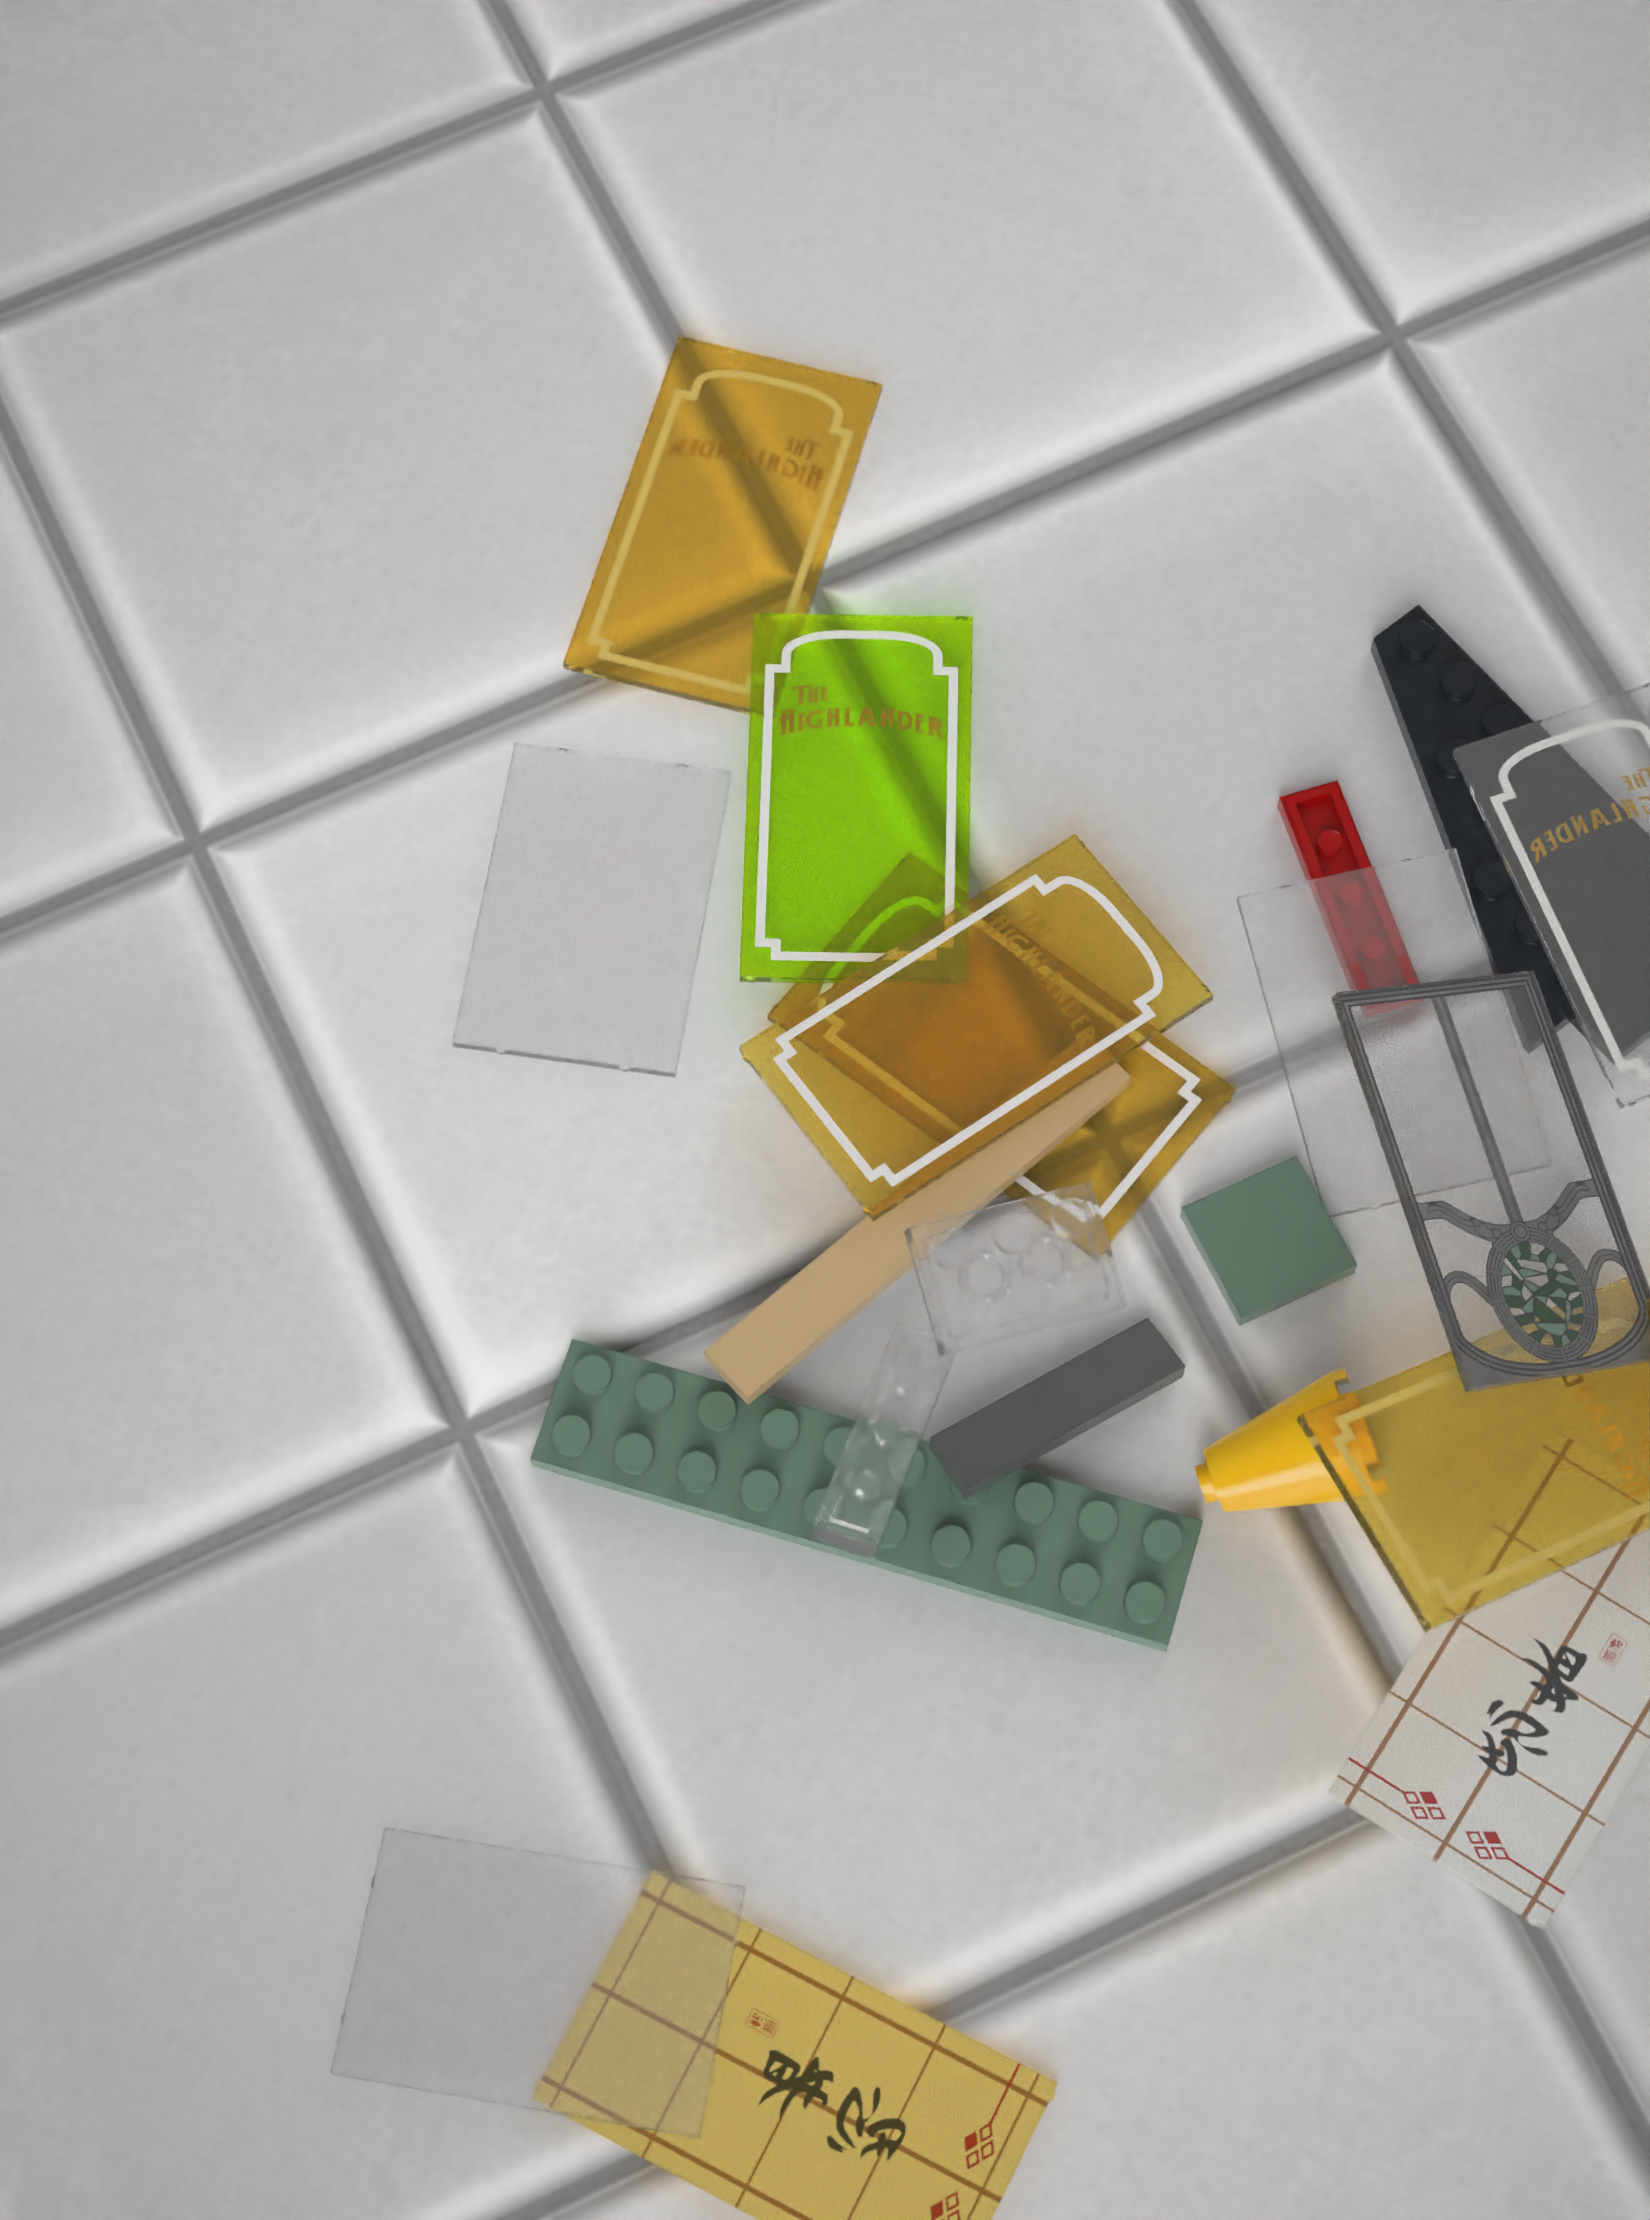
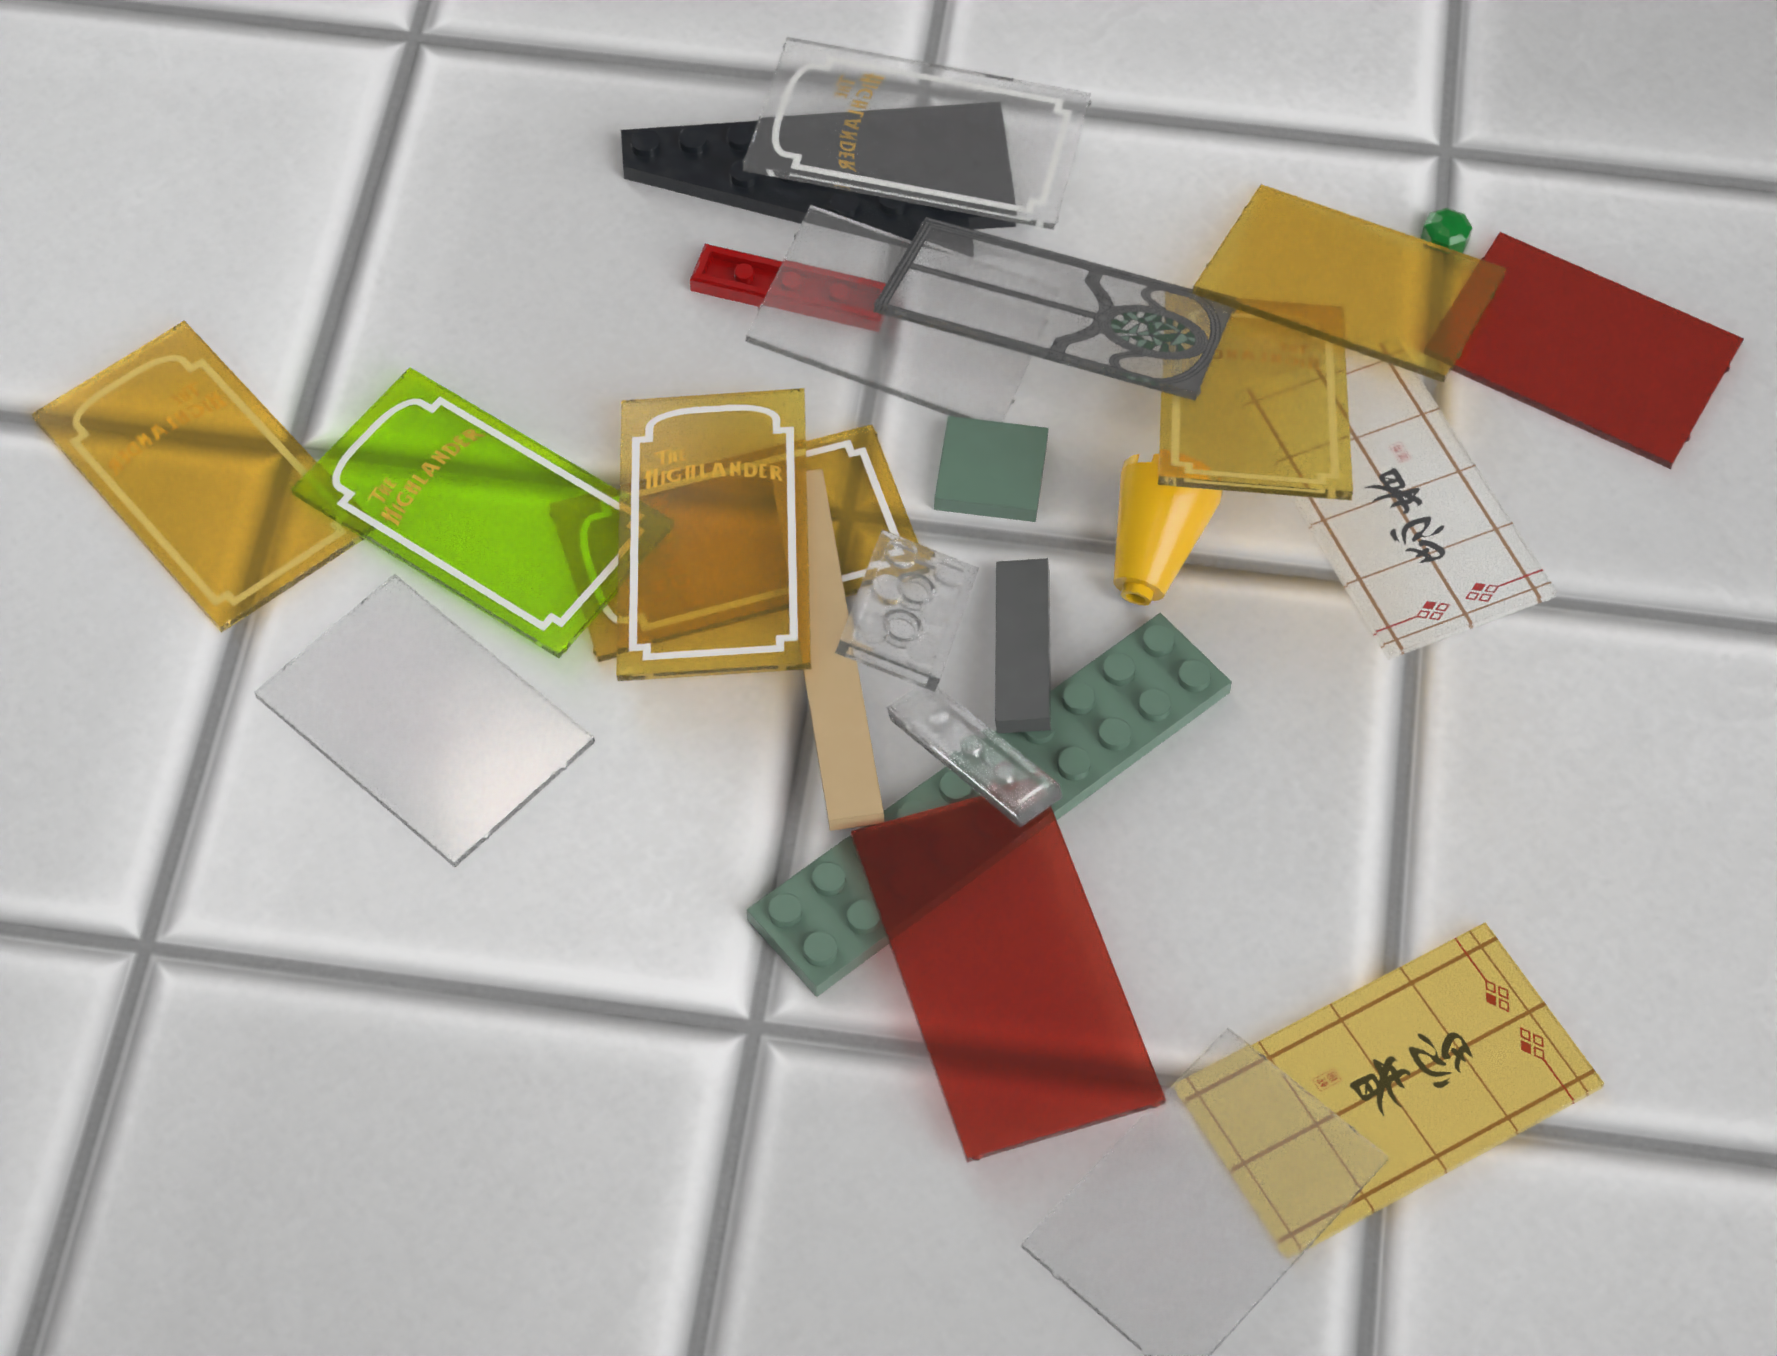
camera: 60 degrees left, 10 degrees down
(656, 1629) = (1005, 975): none -> clear red piece

